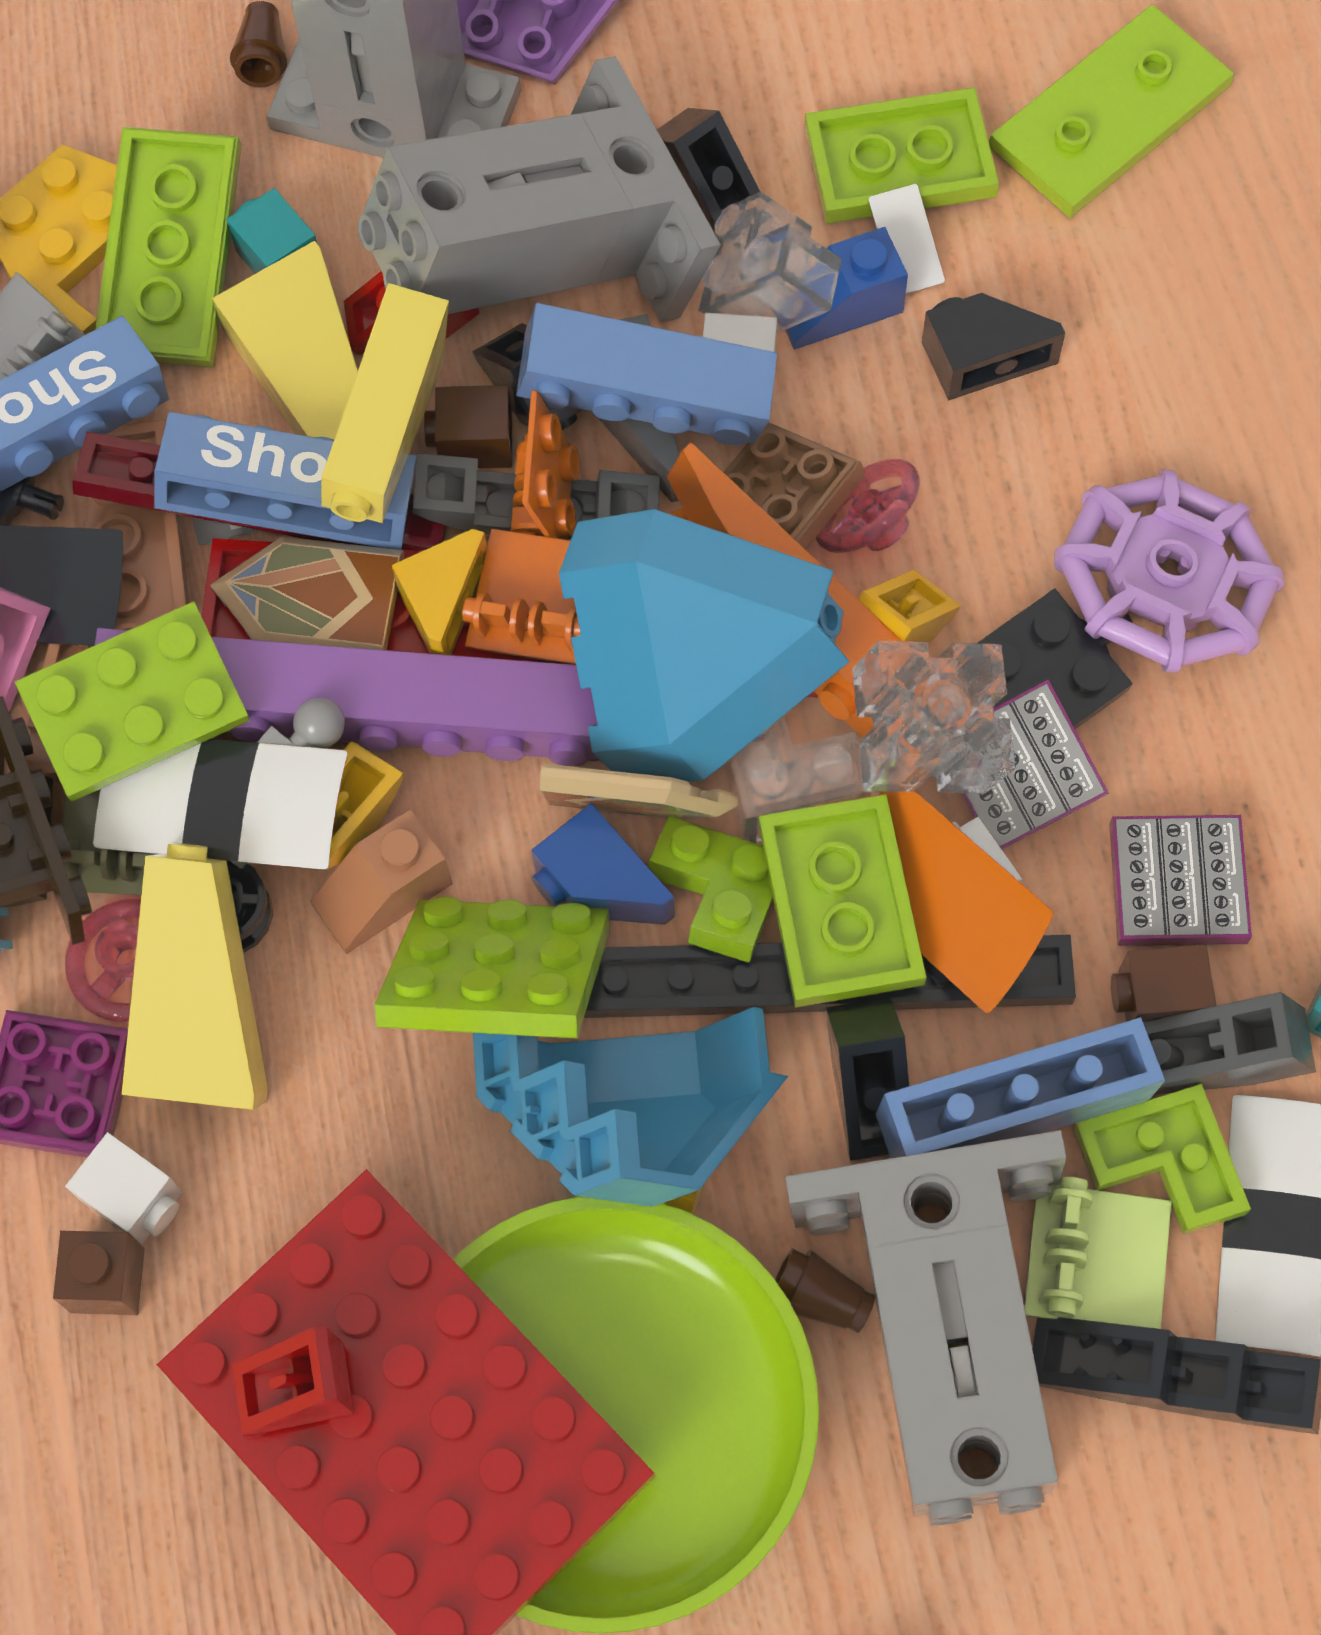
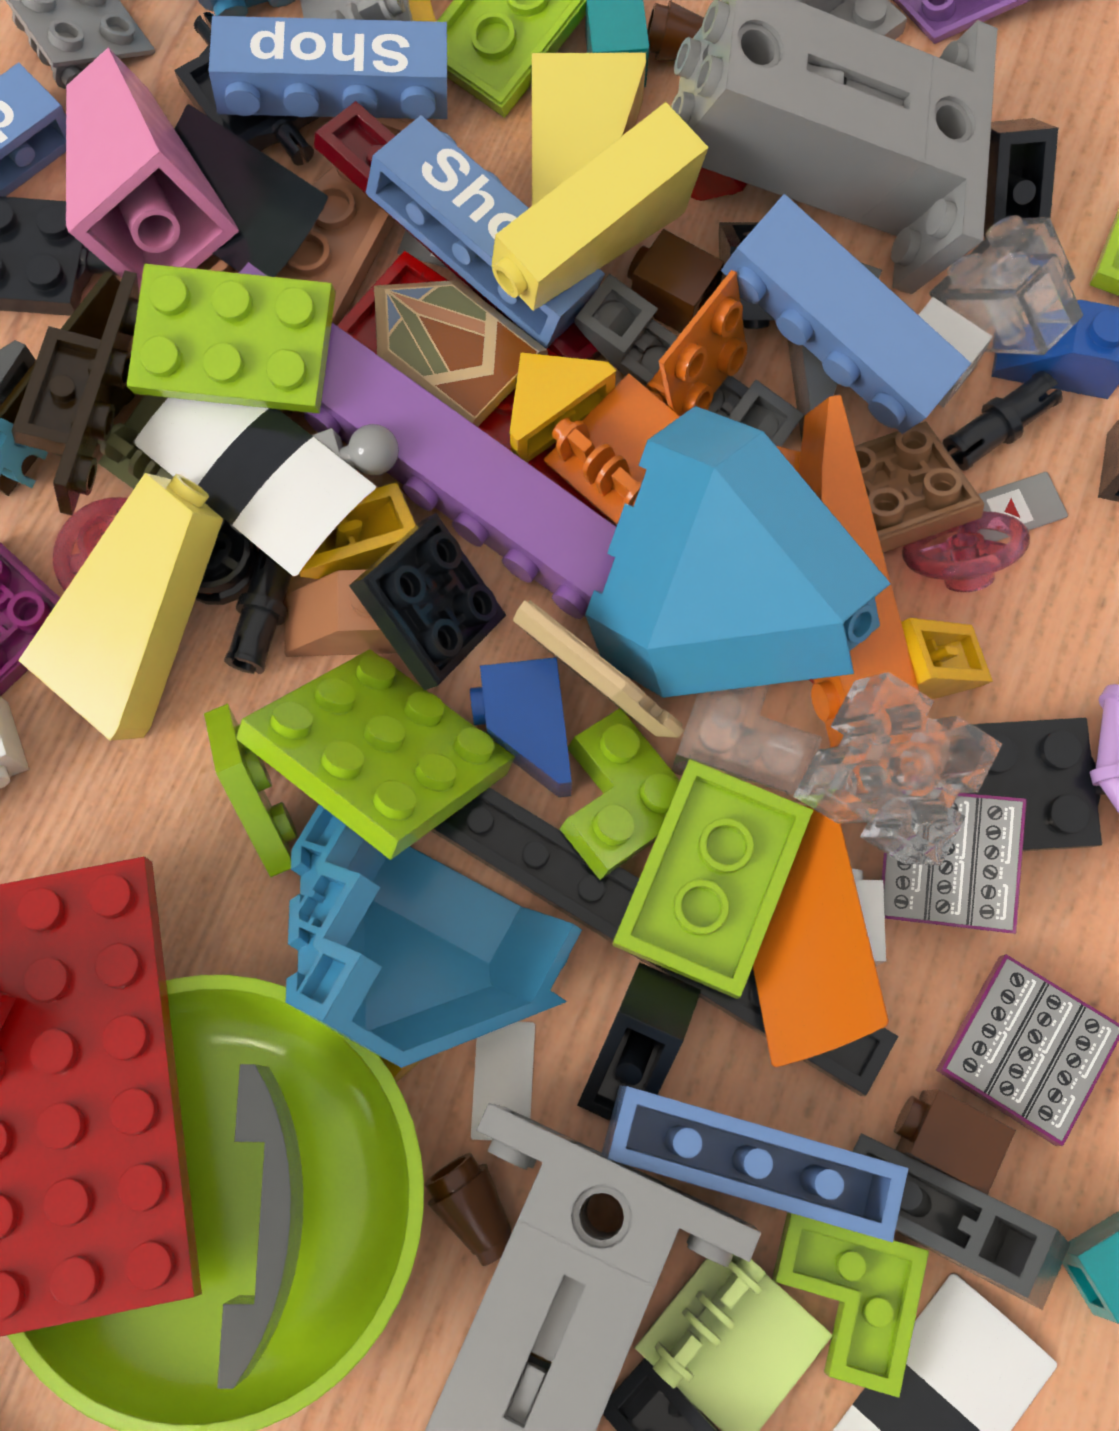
camera: 30 degrees right, 5 degrees up
(301, 926) = (260, 613): none -> black pin
(330, 202) = (669, 28): none -> reddish brown cone
(399, 1064) = (244, 782): none -> lime plate
(451, 821) = (428, 601): none -> black tile
(621, 1306) = (252, 1319): none -> dark grey slope
(762, 1164) = (503, 1072): none -> white sticker
(829, 382) = (1003, 420): none -> black pin
(892, 437) = (1029, 500): none -> light grey sticker

